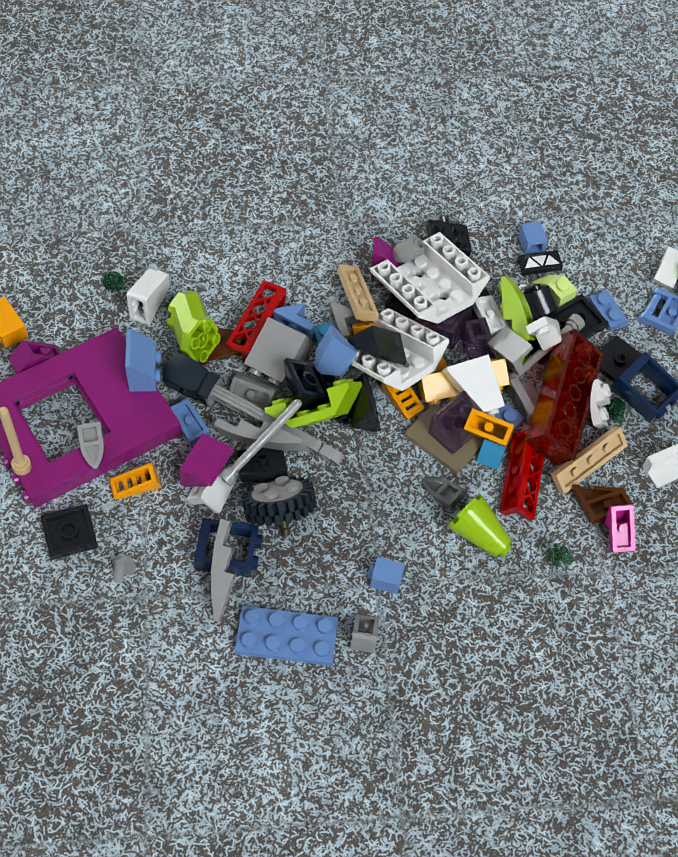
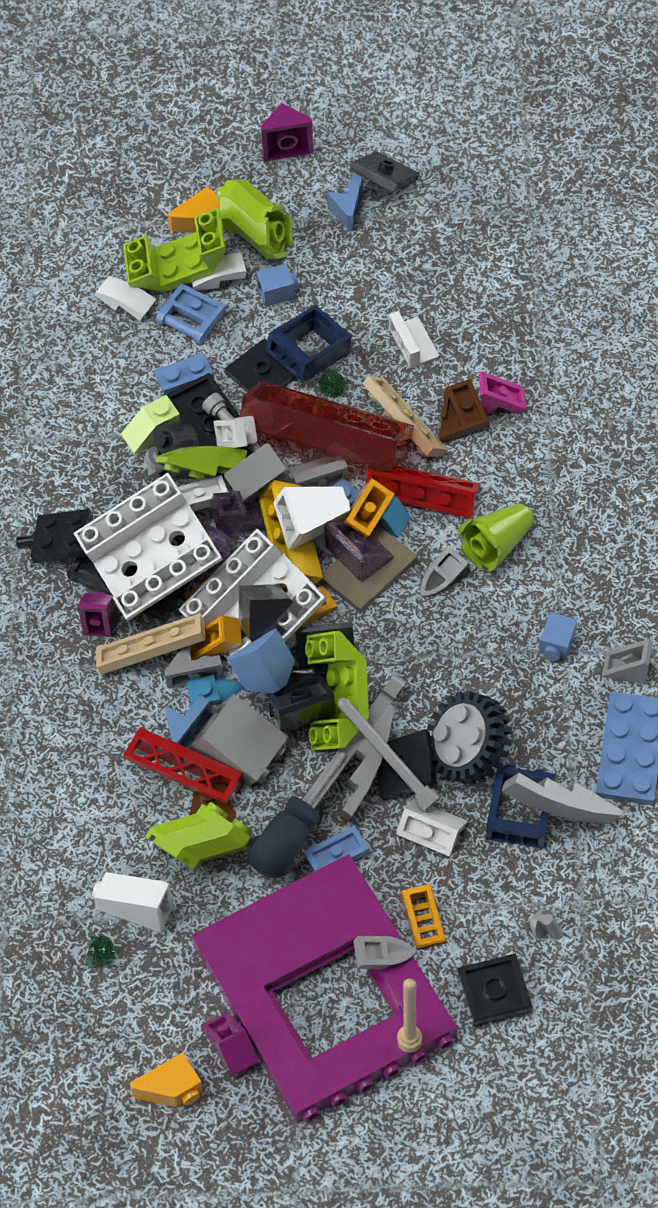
camera: 80 degrees left, 0 degrees up
(142, 362) = (266, 892): medium blue slope -> none
(204, 462) = (408, 825): magenta slope -> none
(254, 390) = (291, 774): light grey panel -> none
(408, 249) = (93, 574): light grey brick -> none
(532, 238) = (66, 441): medium blue brick -> none
(540, 262) = (103, 439): black tile -> none
(560, 554) = (529, 465): clear green plate -> none
(599, 398) = (322, 389): white slope -> none

